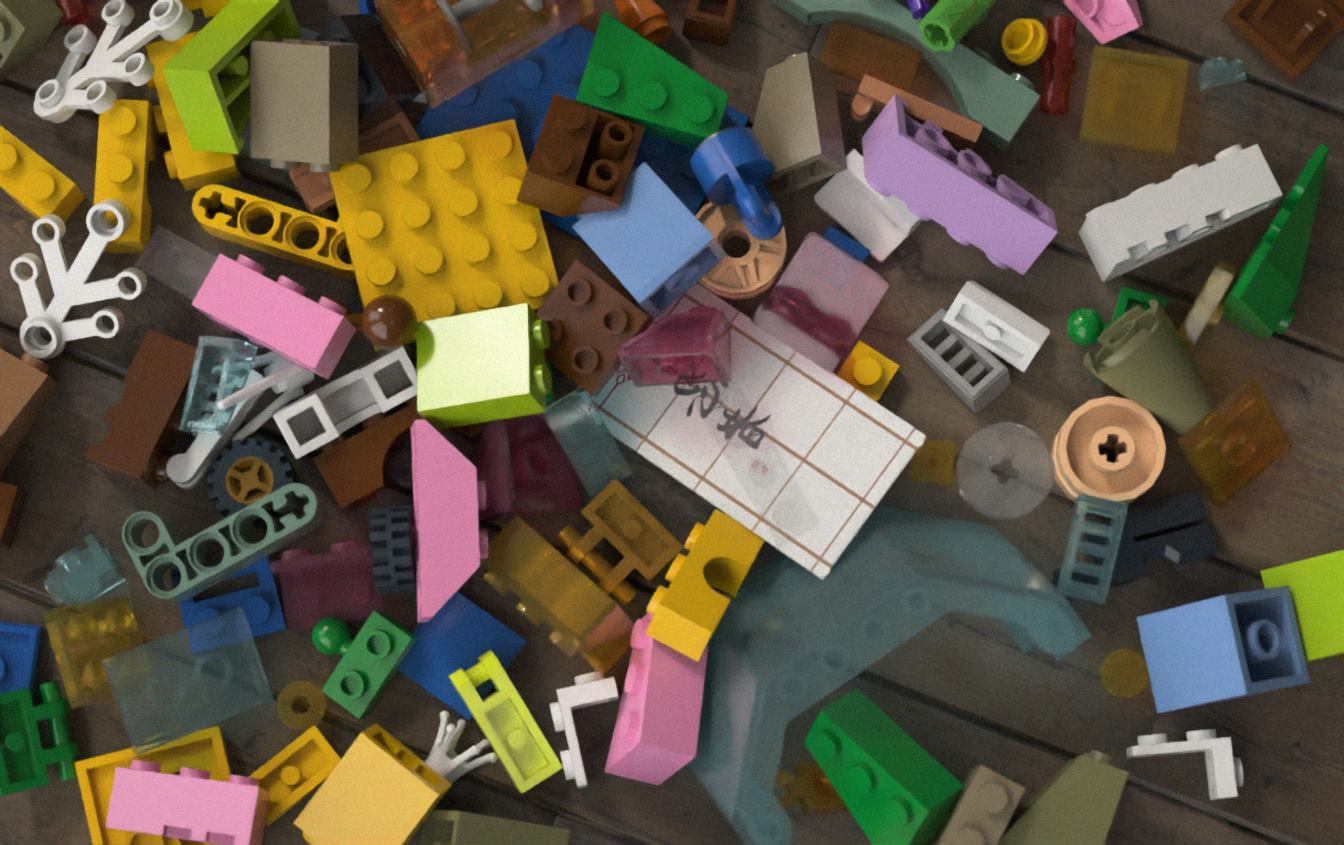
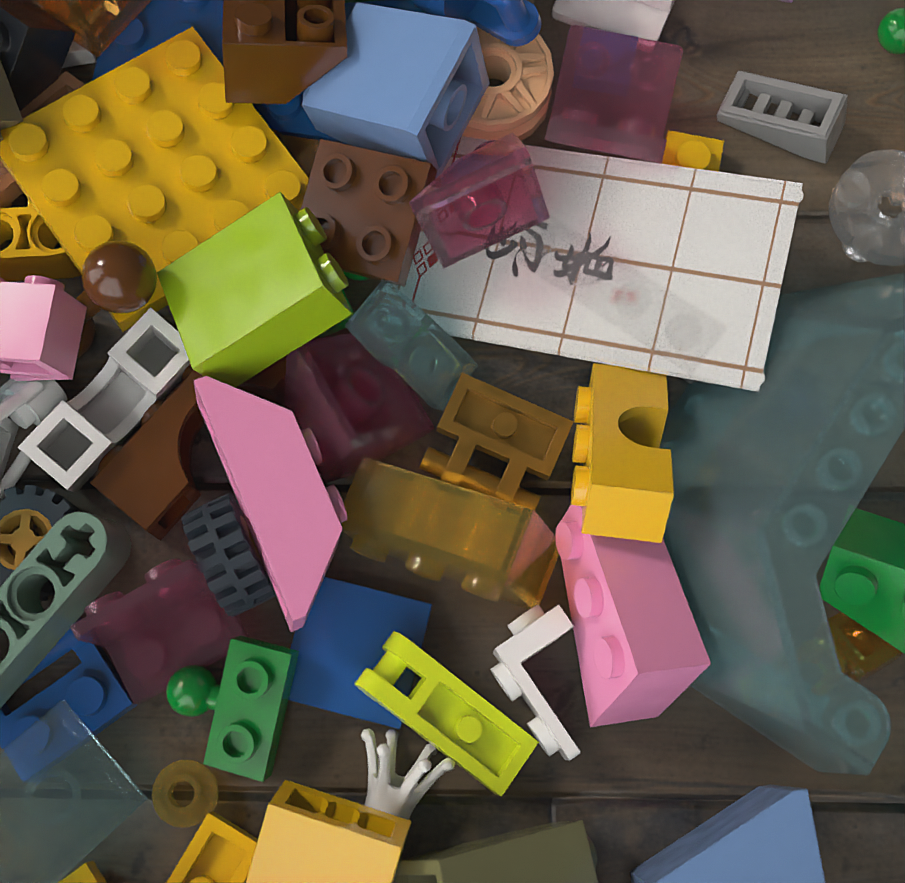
camera: 20 degrees left, 5 degrees down
(942, 472) = (820, 220): clear yellow plate -> none
(996, 325) = (815, 53): white panel -> none

